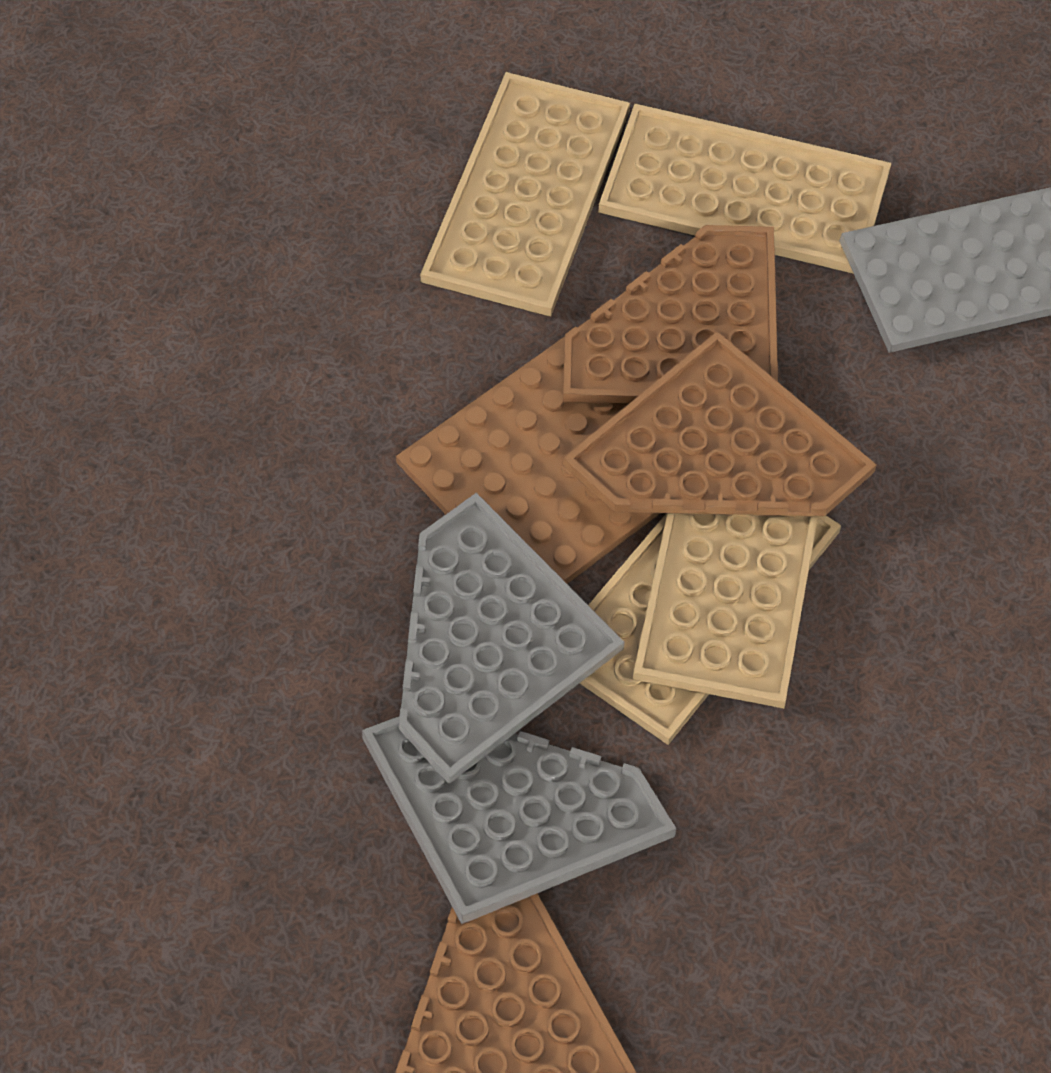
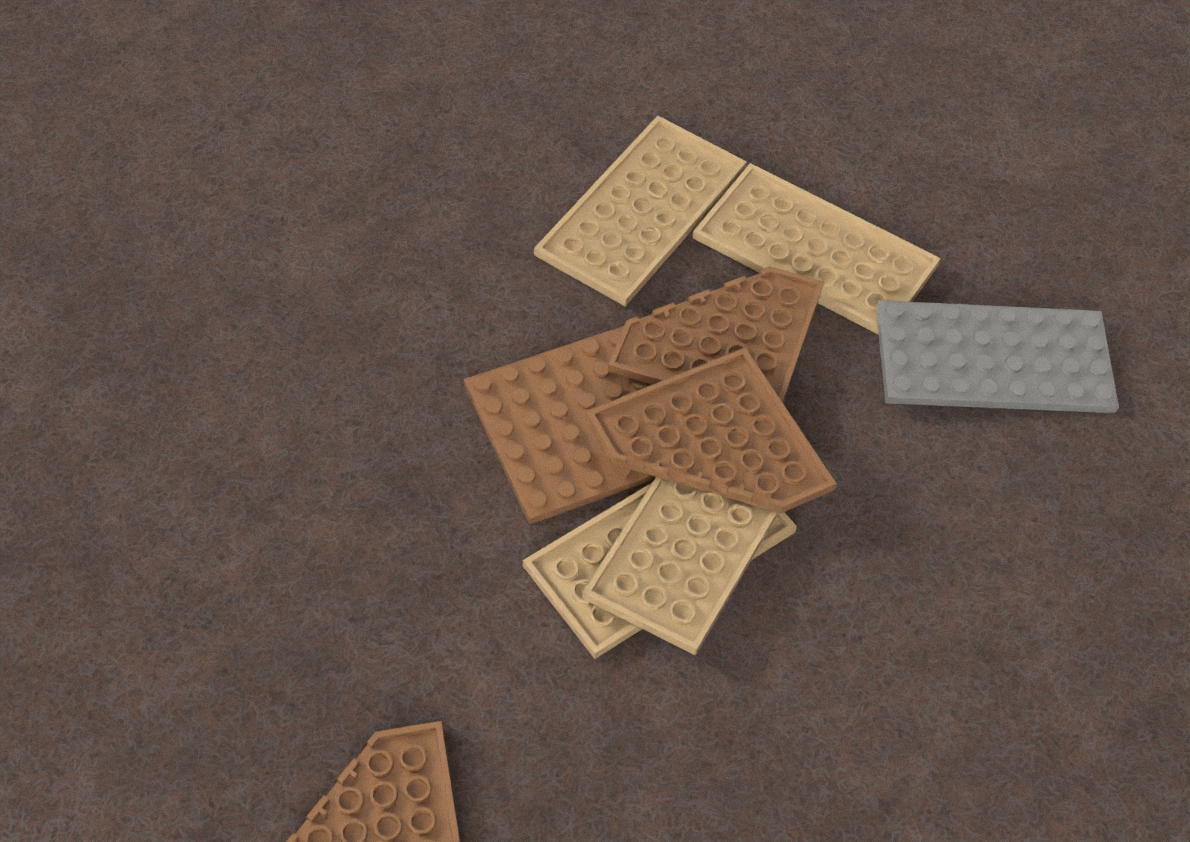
camera: 15 degrees right, 5 degrees down
(489, 639) = (479, 535): light grey plate -> none
(517, 816) = (449, 673): light grey plate -> none

